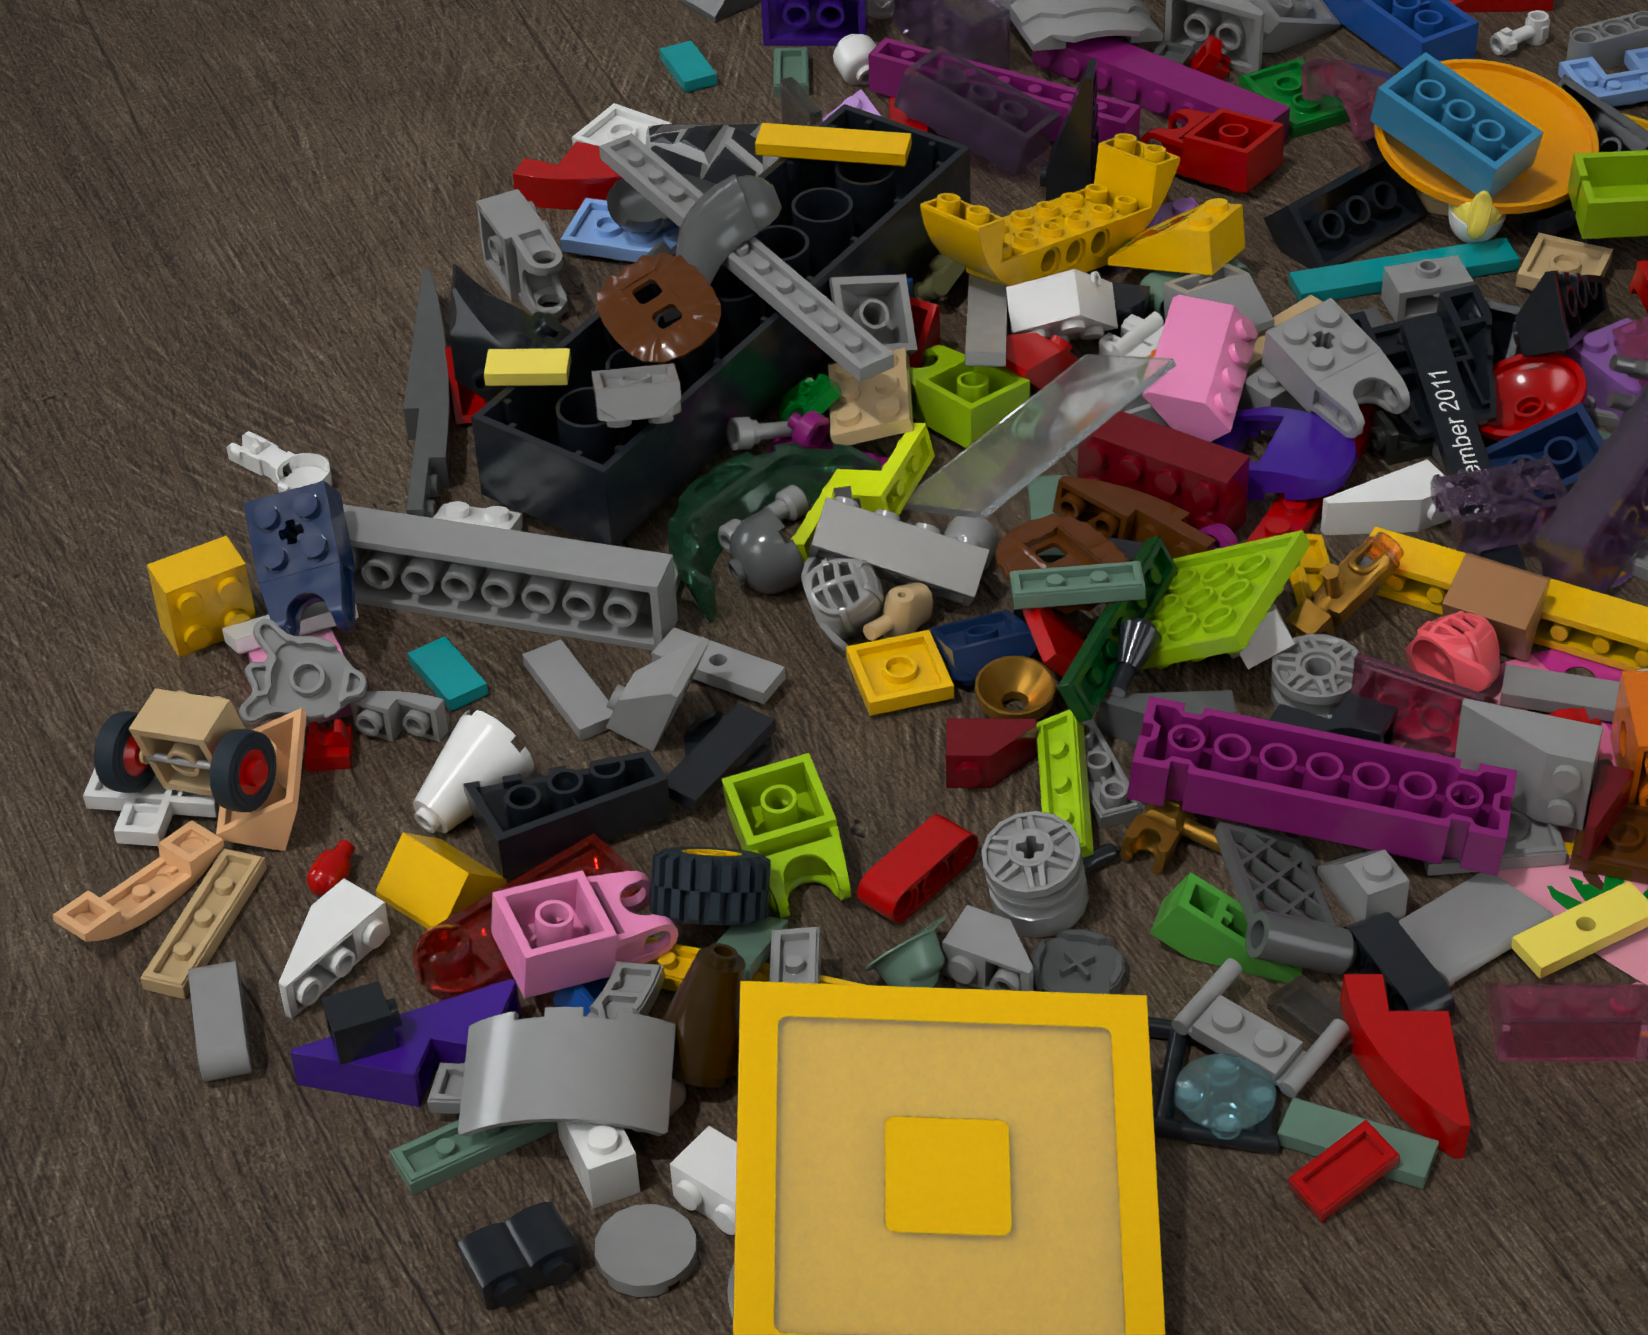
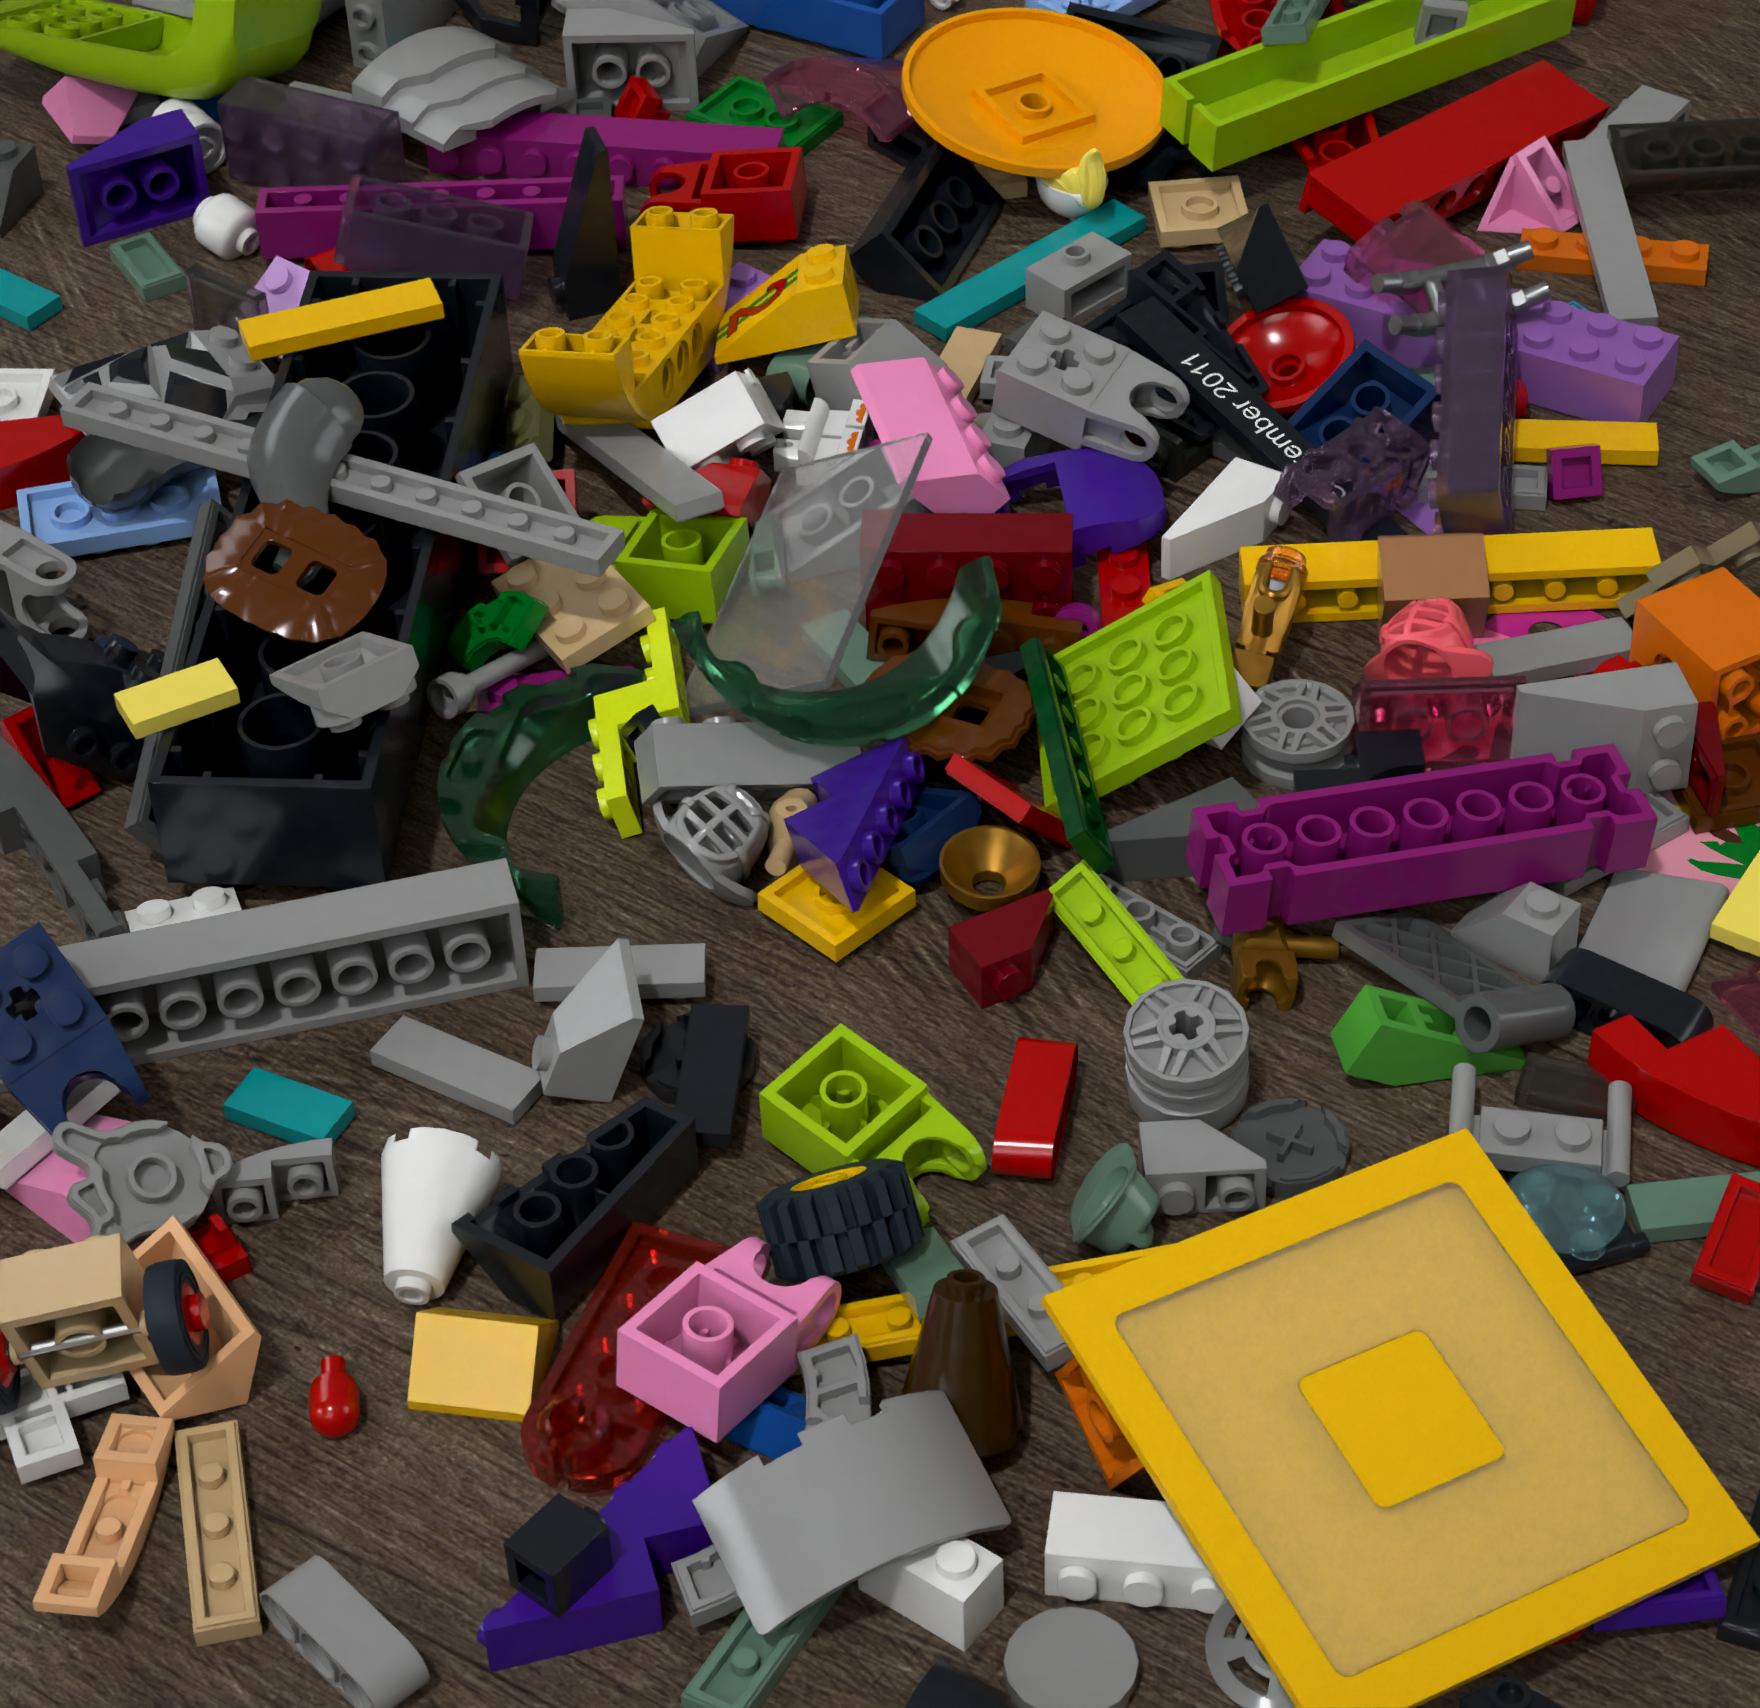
camera: 30 degrees left, 0 degrees up
(332, 940) = (412, 1470): white slope -> none
(763, 555) = (587, 823): dark grey cylinder -> none
(788, 504) = (522, 814): light grey piece -> none
(809, 430) = (528, 662): magenta tile -> none
(925, 625) = (856, 818): none -> dark purple slope
(996, 545) = (881, 707): none -> clear green windscreen
(1077, 585) = (999, 721): sand green tile -> none
(1136, 644) = (1106, 762): black cone -> none
(1455, 125) = (1015, 87): dark azure brick -> none

